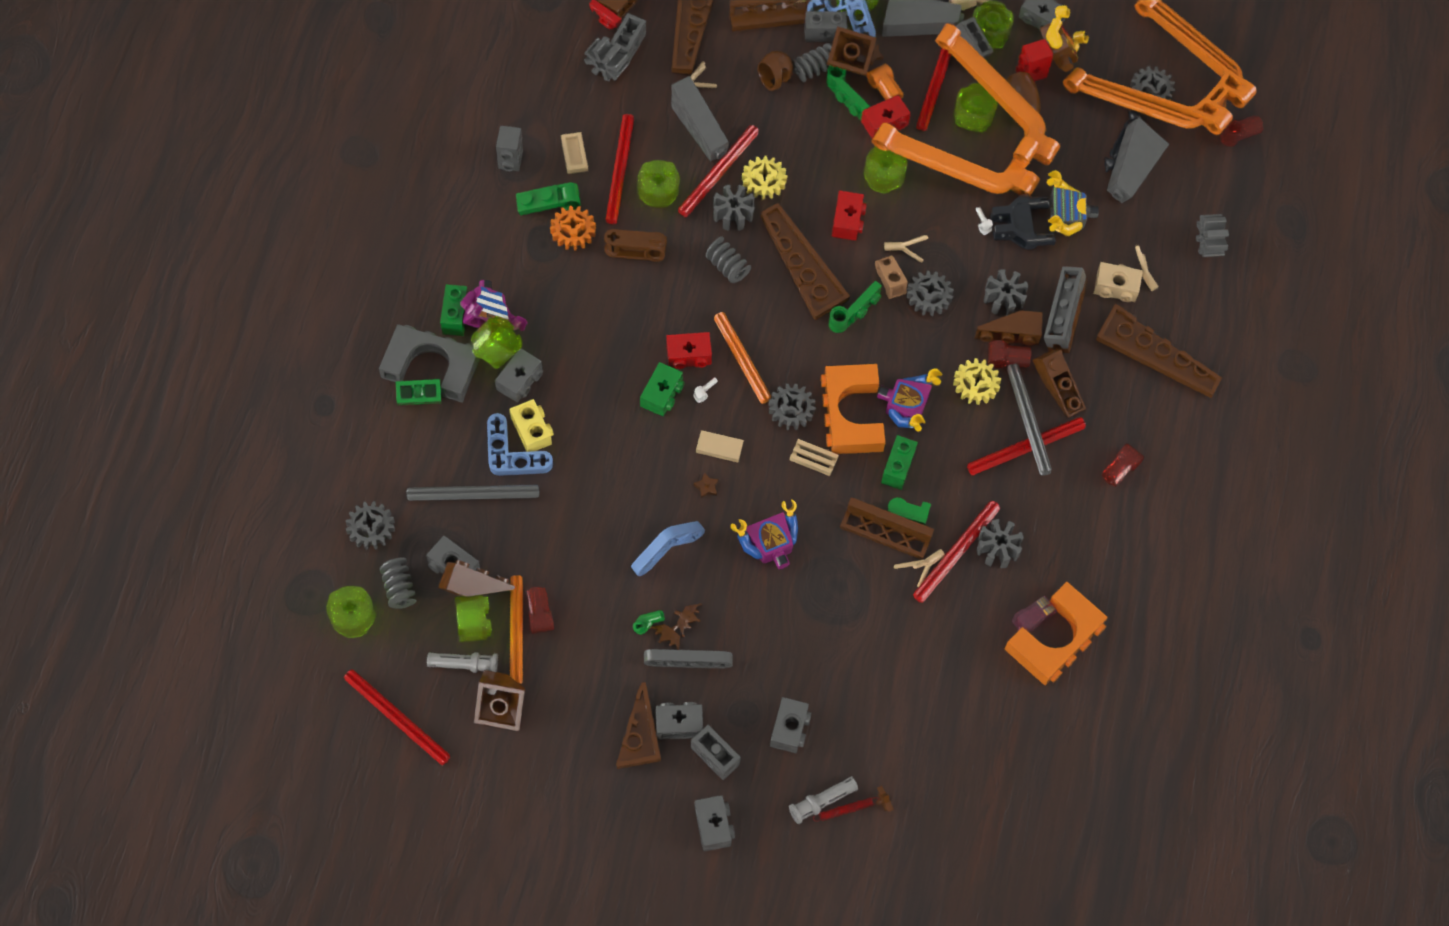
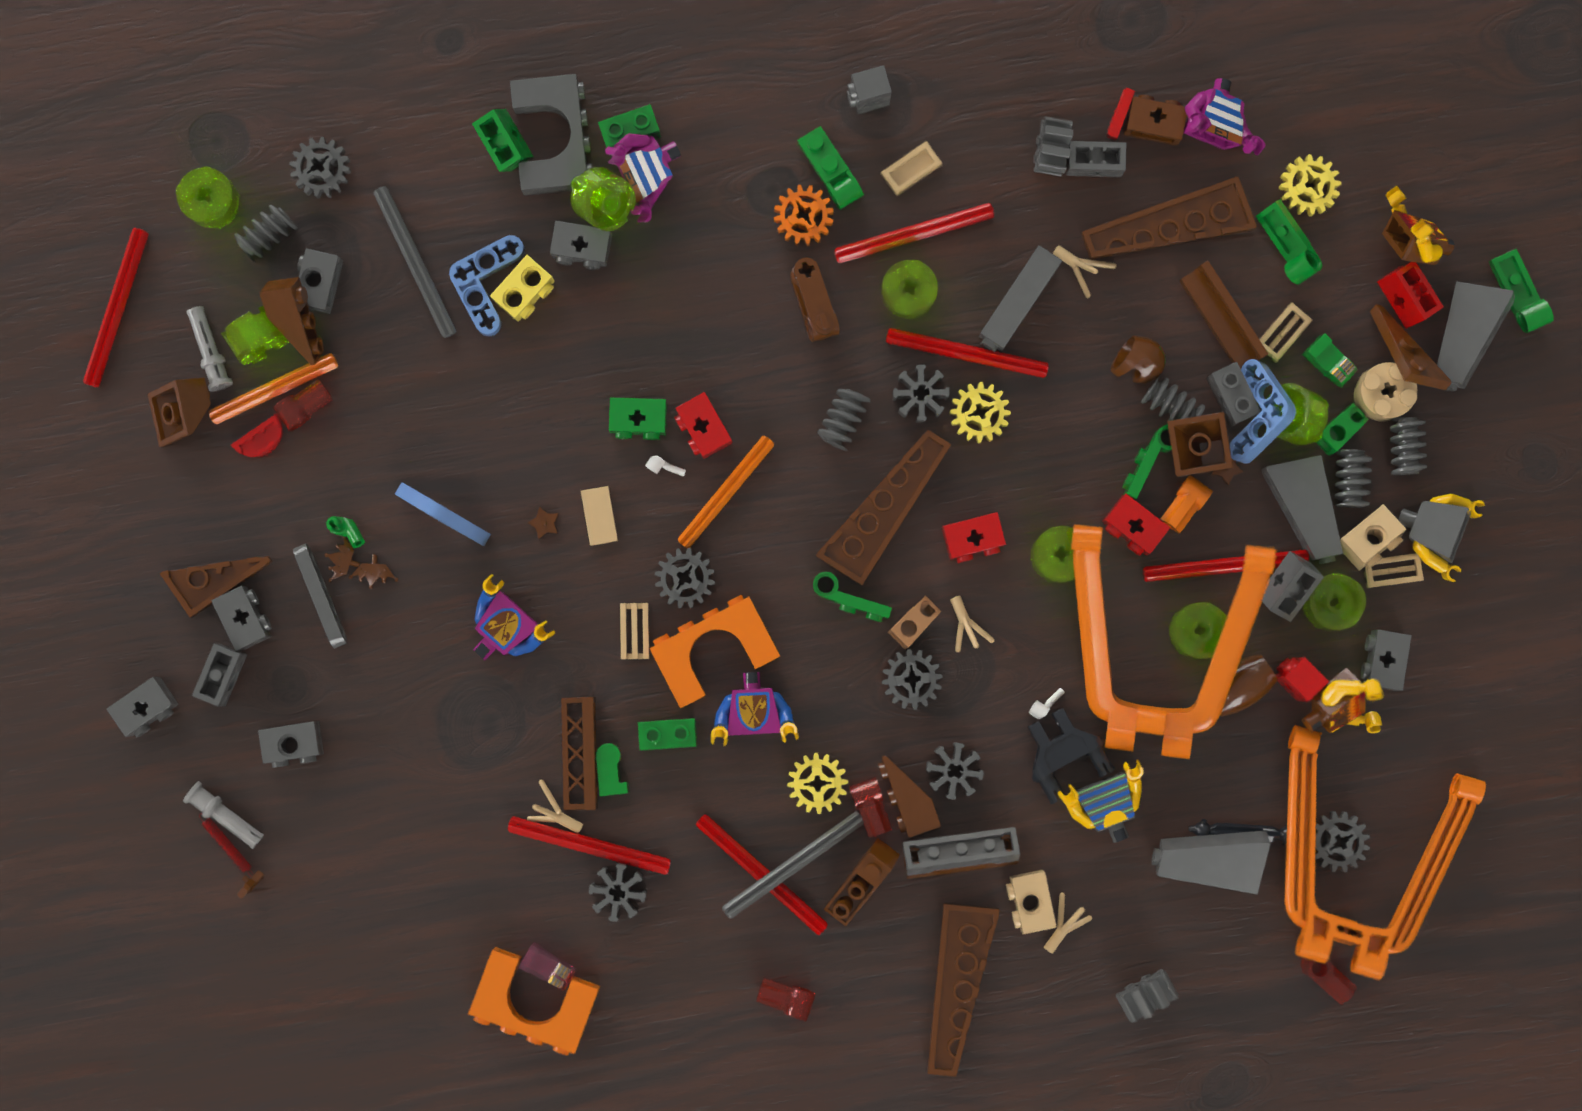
camera: 70 degrees right, 20 degrees up
(550, 655) = (261, 439): none -> red tile

